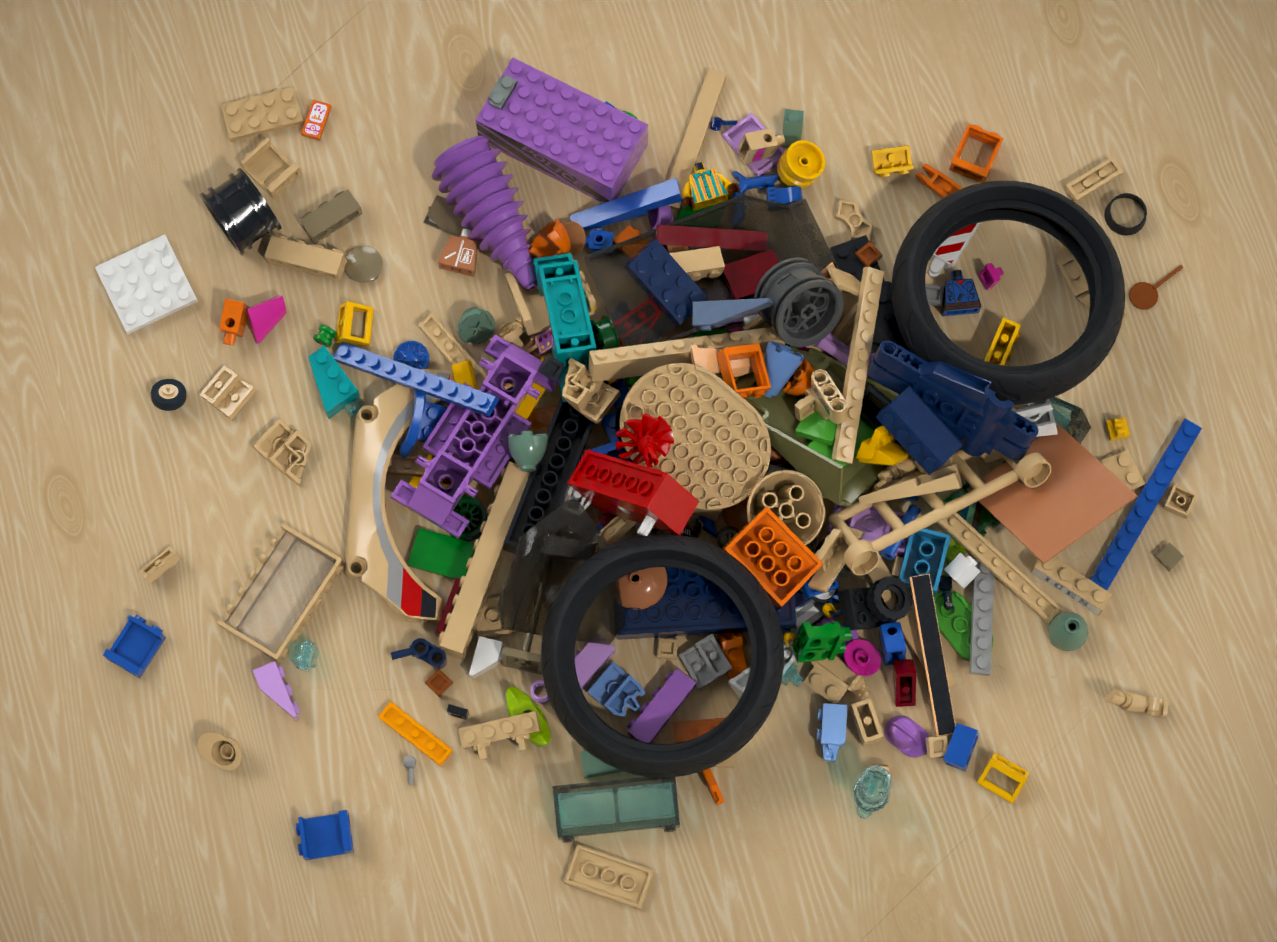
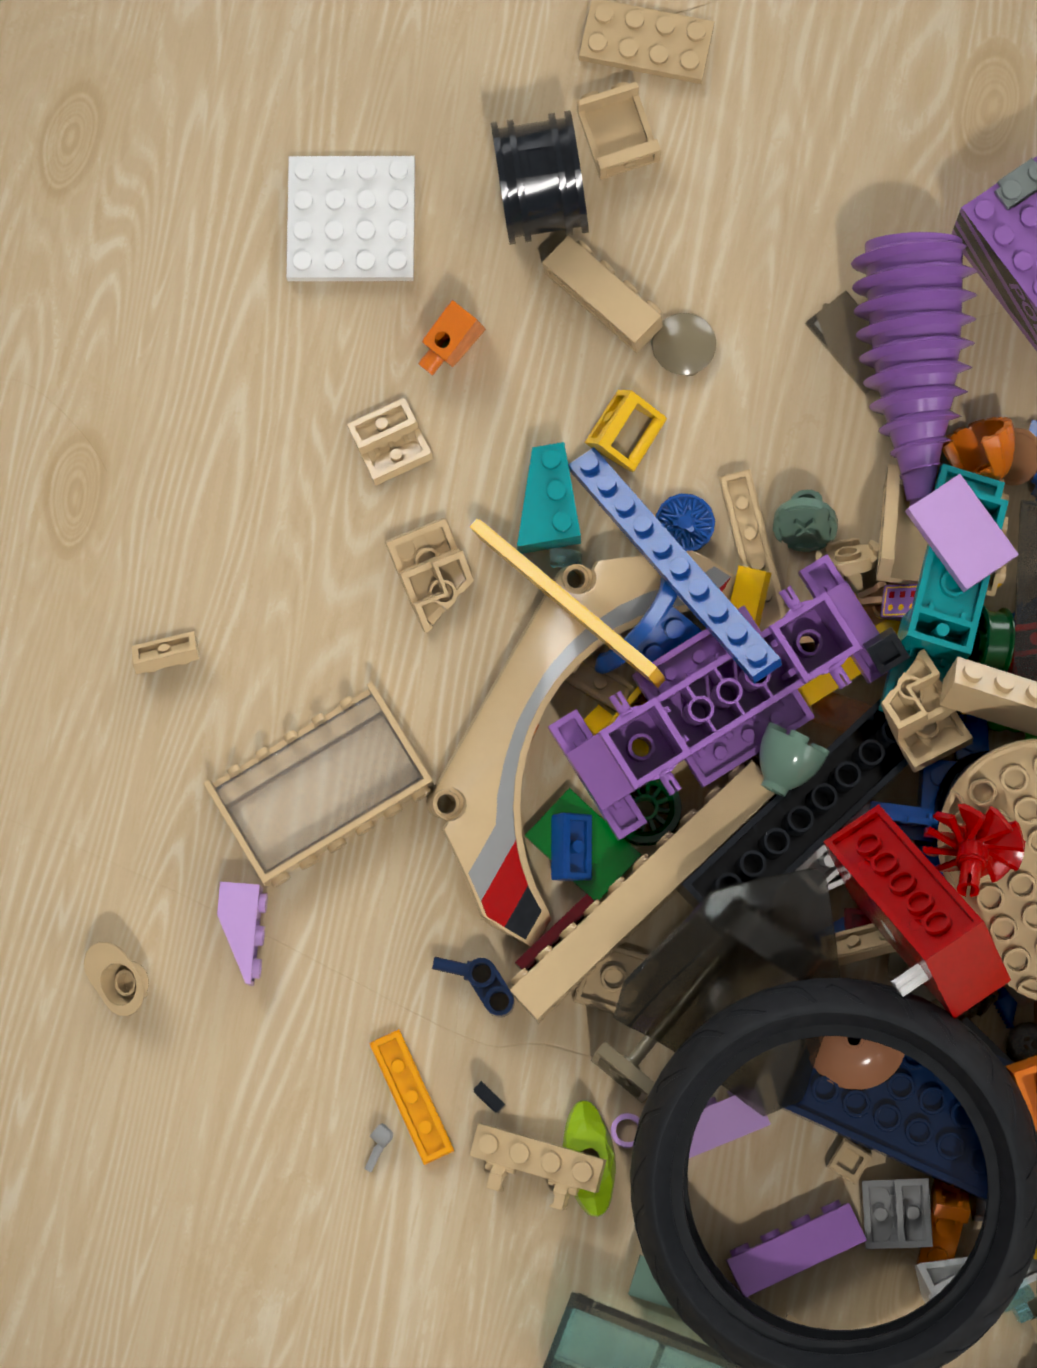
camera: 35 degrees right, 5 degrees up
(135, 646) = (71, 757): blue panel -> none
(168, 394) = (301, 402): black wheel -> none
(265, 316) = (500, 353): dark pink slope -> none
(305, 656) = (308, 898): clear light blue piece -> none
(316, 120) = (722, 88): tile -> none
(325, 336) = (573, 426): green wheel -> none
(325, 836) = (205, 1182): blue panel -> none
(331, 216) = (671, 247): dark tan brick -> none
(368, 427) = (568, 603): none -> yellow tile
(435, 557) = (571, 847): none -> blue slope
(438, 682) = (483, 1037): dark orange tile -> none
(460, 254) = (836, 400): nougat torso -> none
(486, 656) = (573, 1035): white slope -> none
(559, 287) = (961, 532): none -> lavender tile
(616, 690) = (740, 1187): medium blue plate -> none
(692, 729) = (834, 1309): clear orange tile -> none

